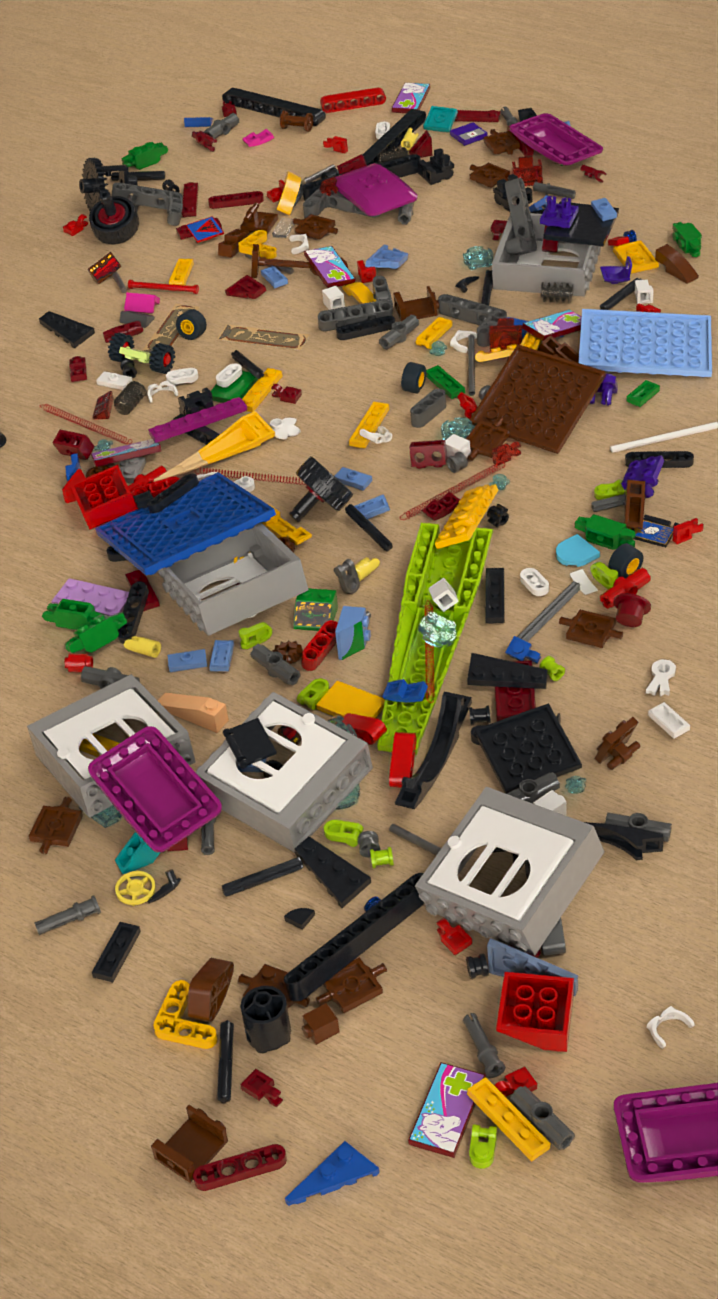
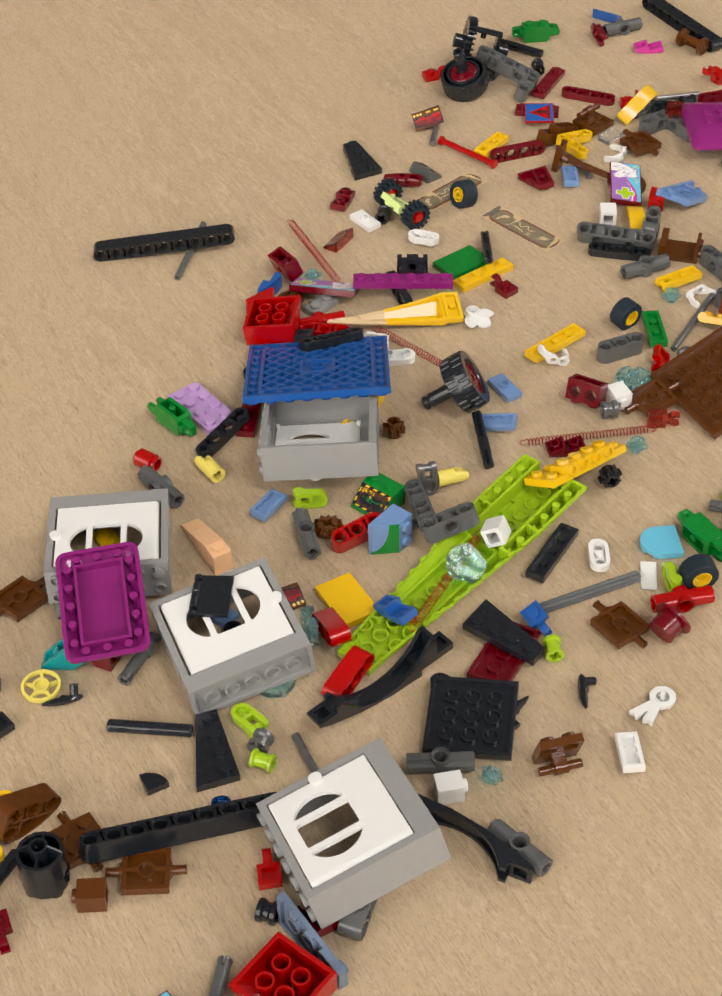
camera: 25 degrees right, 0 degrees up
(96, 634) = (177, 440): green hinge -> none
(129, 397) = (364, 239): clear smoke piece -> none
(140, 302) = (437, 159): dark pink panel -> none
(170, 387) = (387, 242): white cap -> none
(187, 660) = (237, 496): medium blue plate -> none
(223, 262) = (517, 151): none -> dark red beam
(228, 109) = (642, 13): dark red plate -> none
(229, 375) = (461, 250): white plate -> none
(282, 528) = (406, 406): yellow slope -> none
(317, 689) = (324, 572): lime plate -> none
(385, 612) = (435, 525): none -> dark grey beam
(479, 715) = (452, 663): black bush -> none
(597, 690) = (583, 683): none -> black bar

